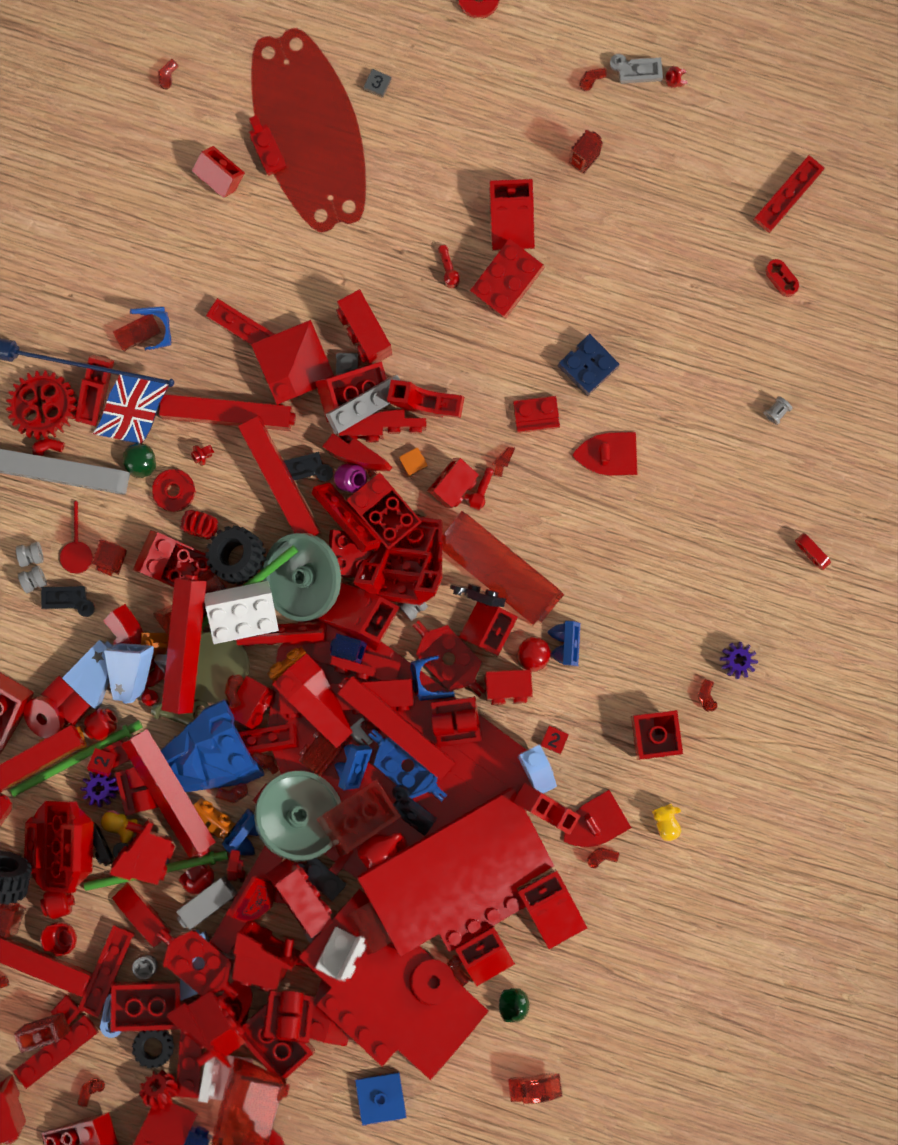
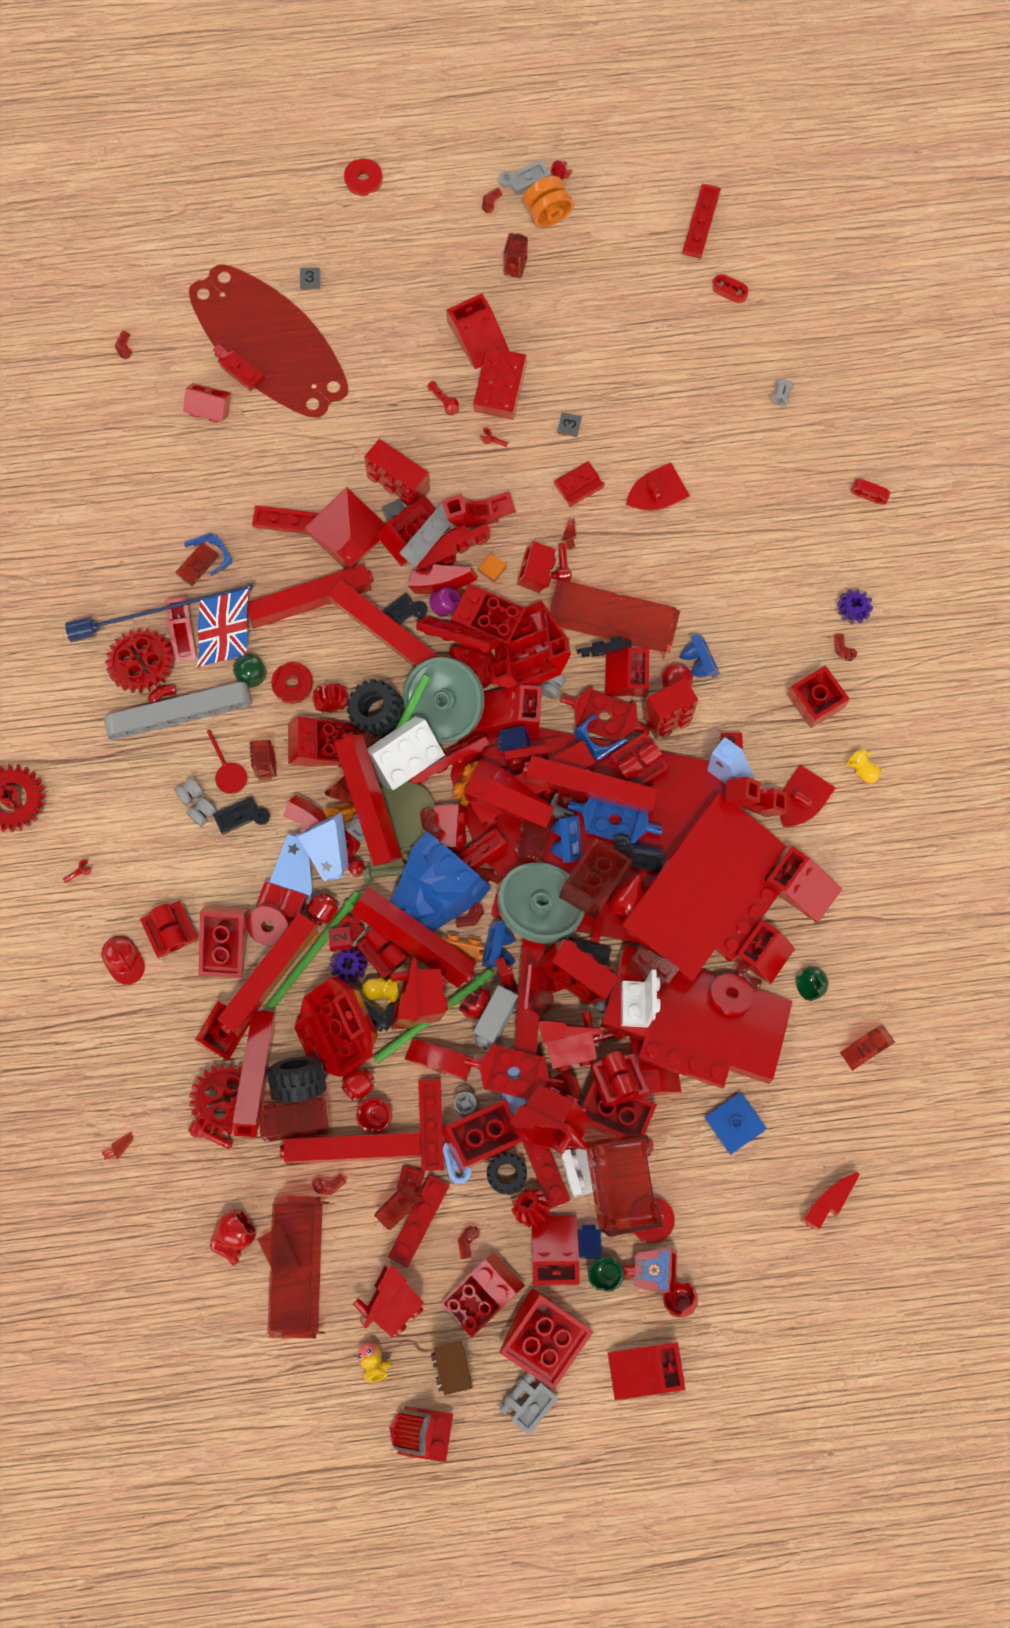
camera: 25 degrees left, 10 degrees down
(199, 455) = (303, 640): red plate -> none
(474, 329) = (490, 438): none -> red hand
(556, 349) = (569, 424): none -> dark grey tile
(588, 365) = (603, 424): dark blue piece -> none
(600, 855) = (821, 822): clear red arm -> none
(644, 108) = (548, 201): none -> orange wheel

